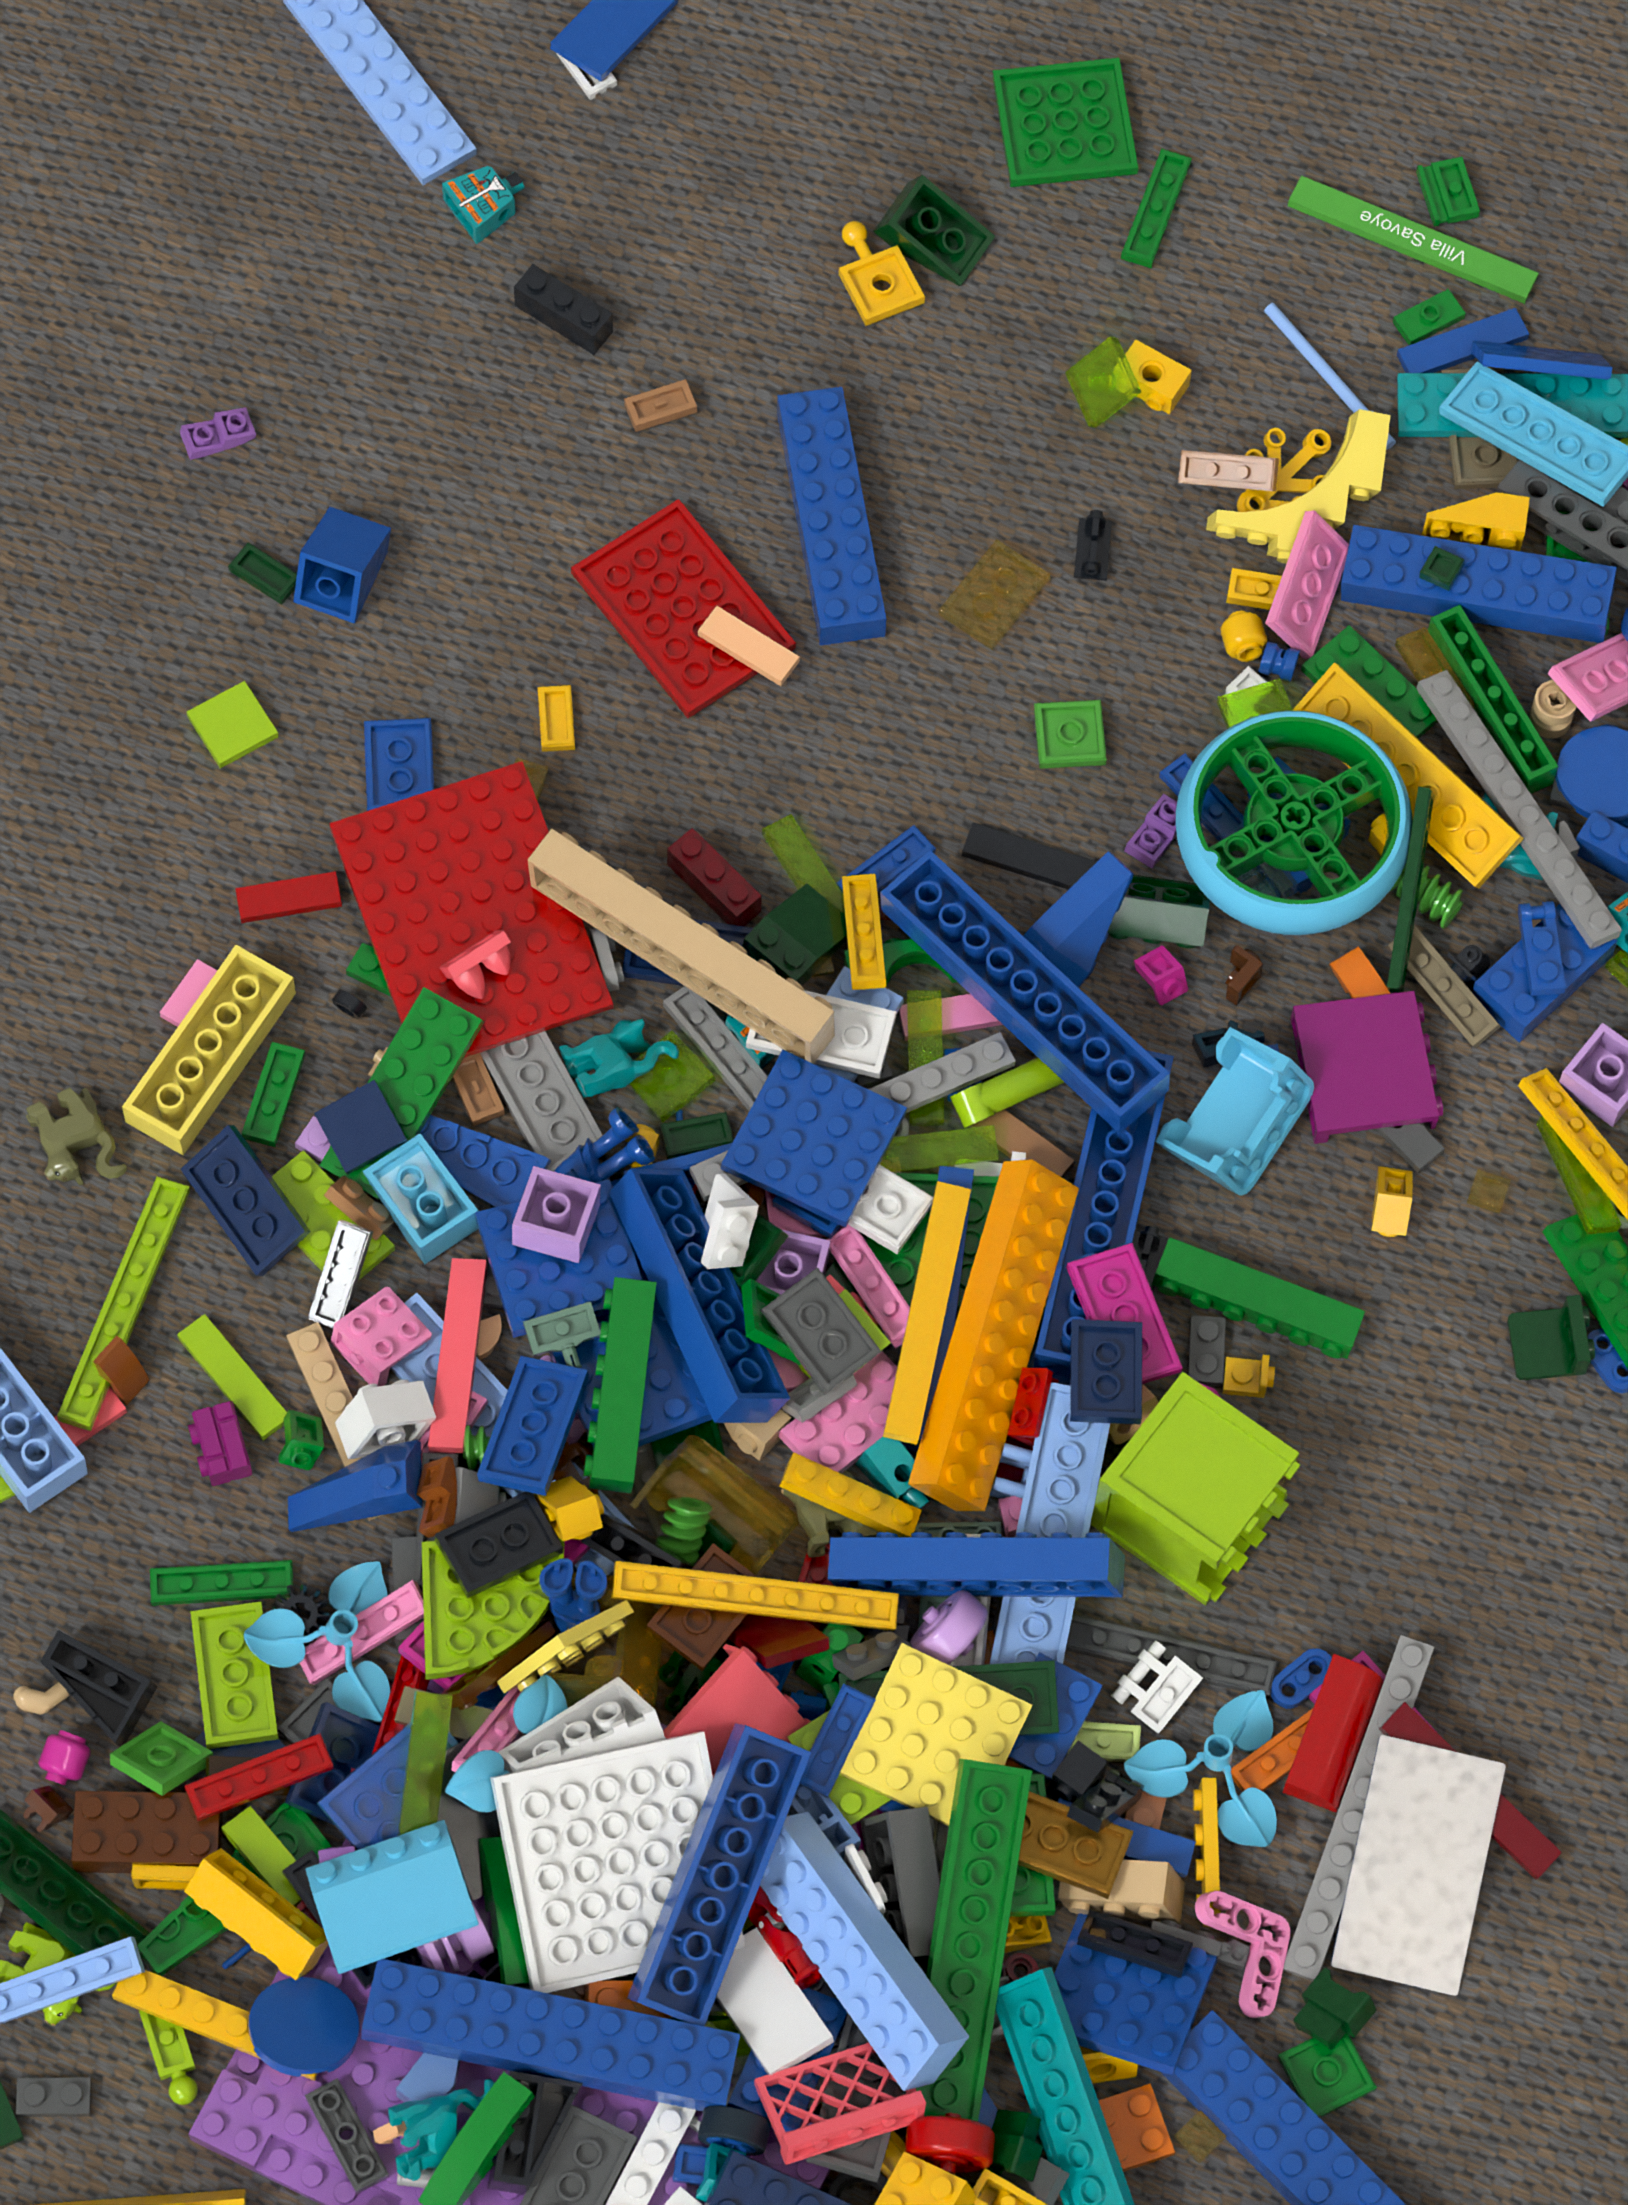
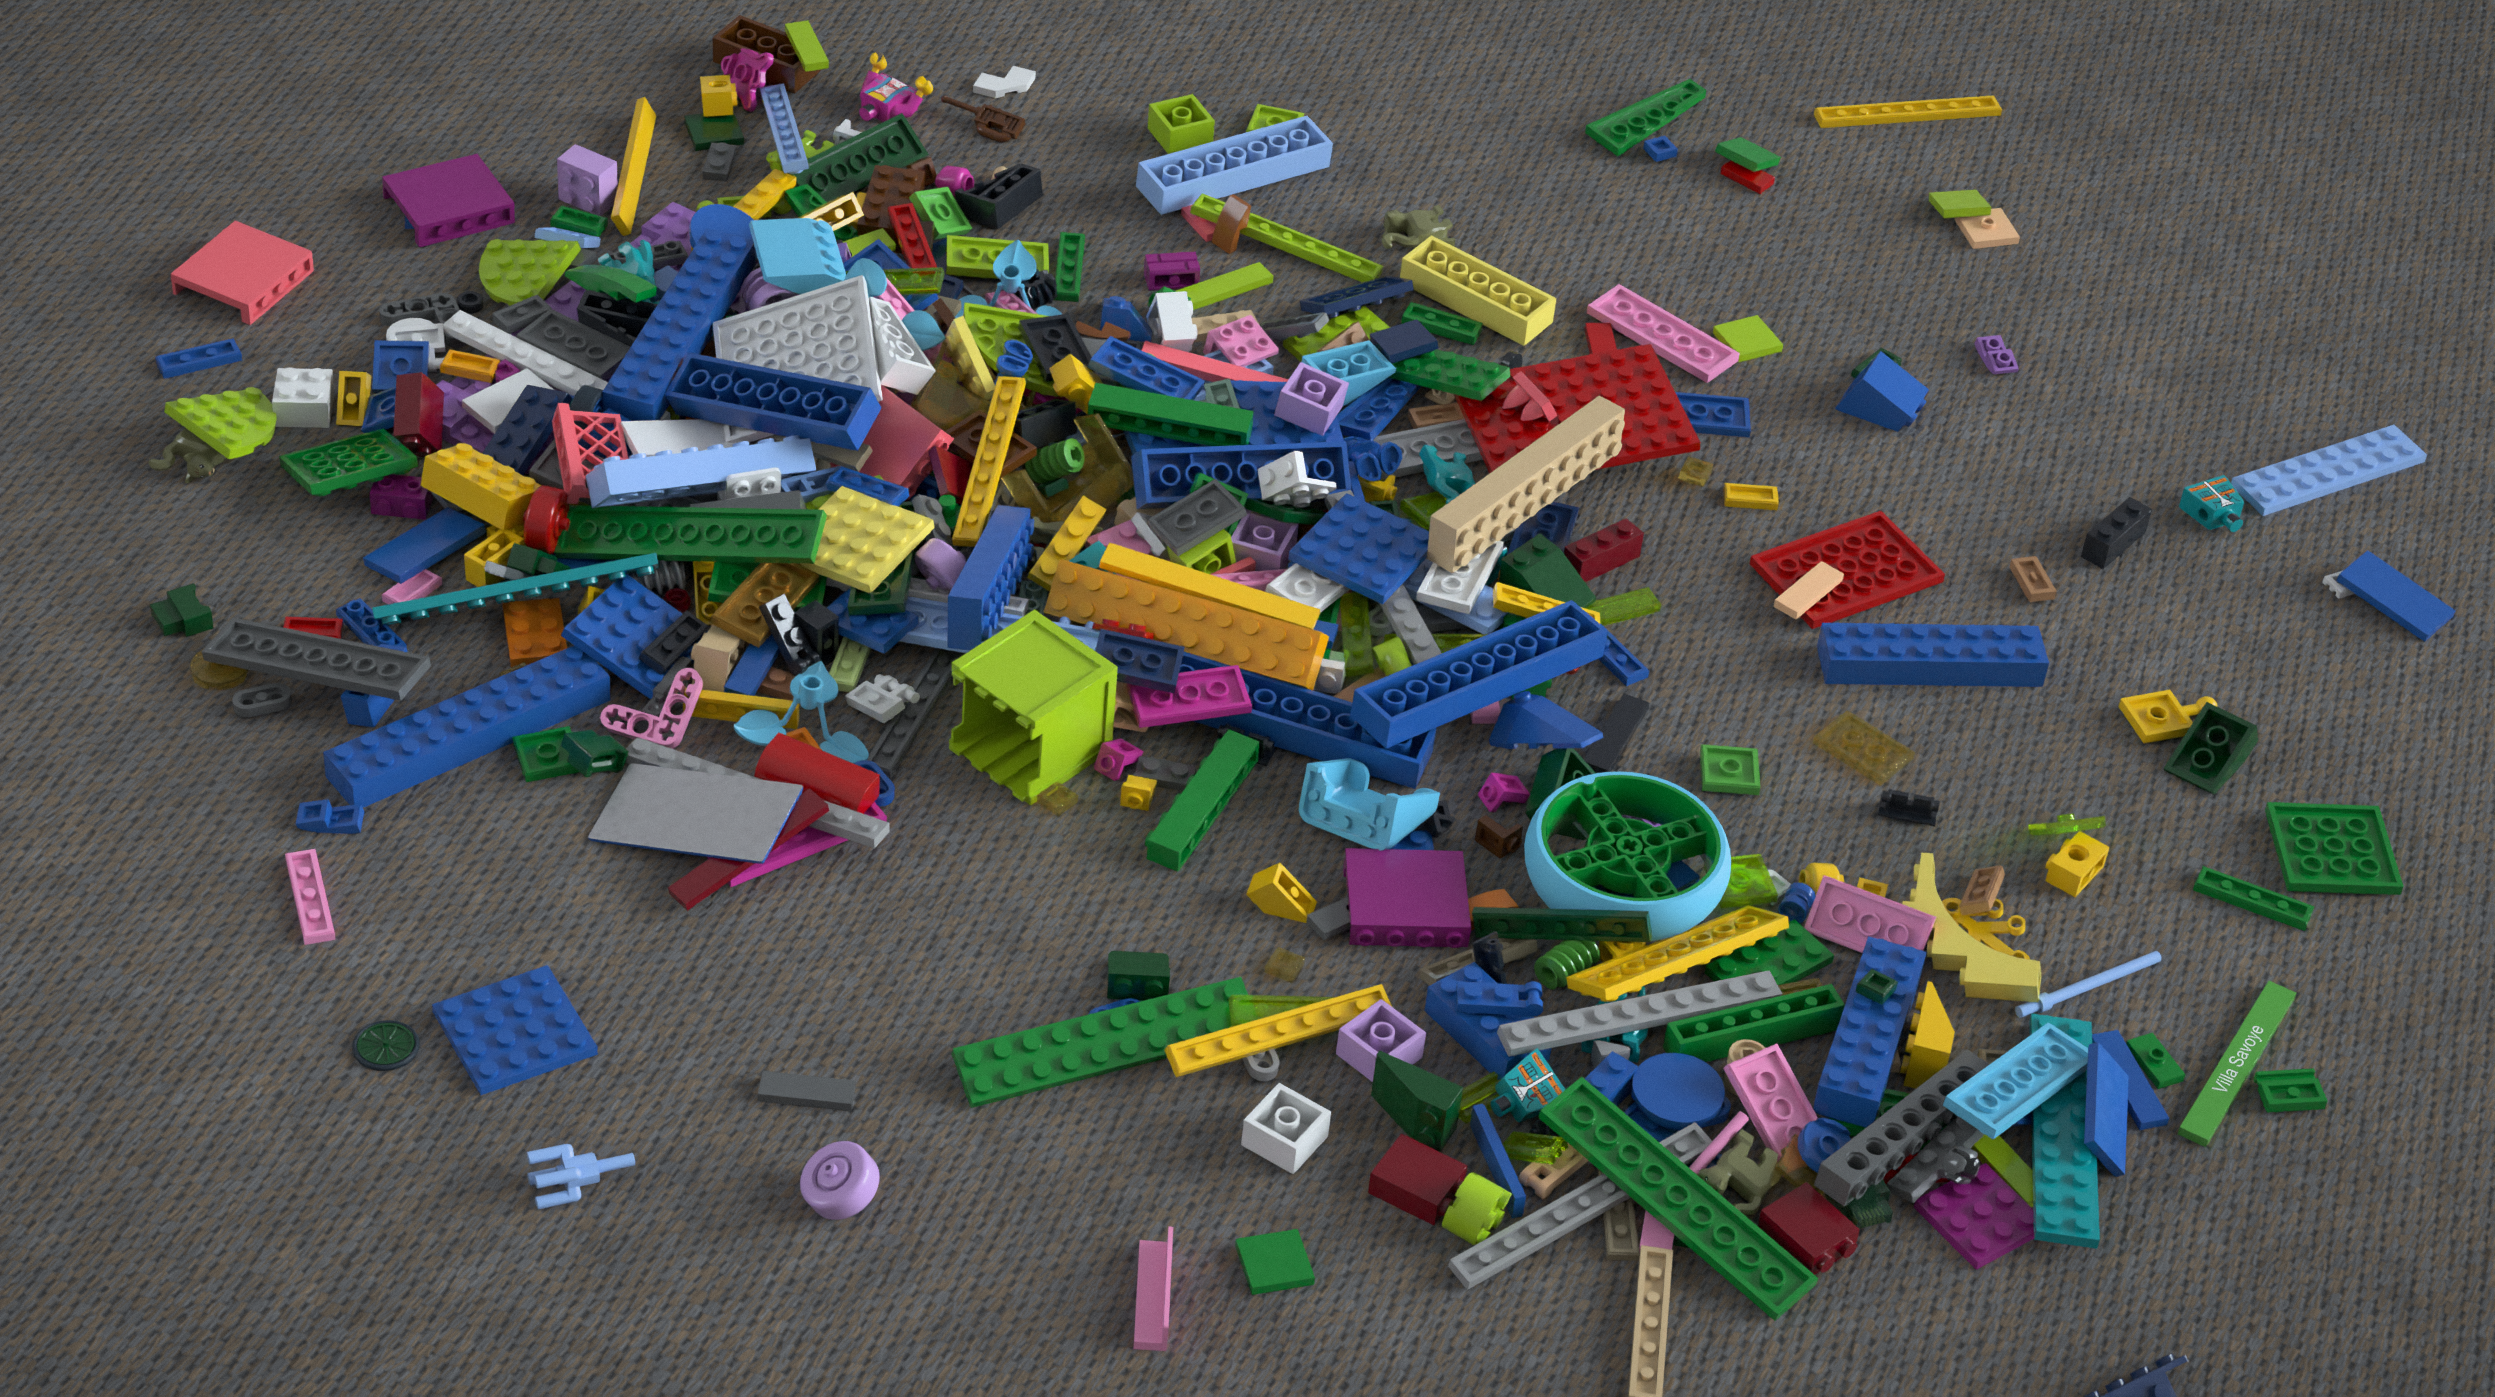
camera: 95 degrees right, 25 degrees down
(245, 825) = (1665, 332): none -> bright pink plate

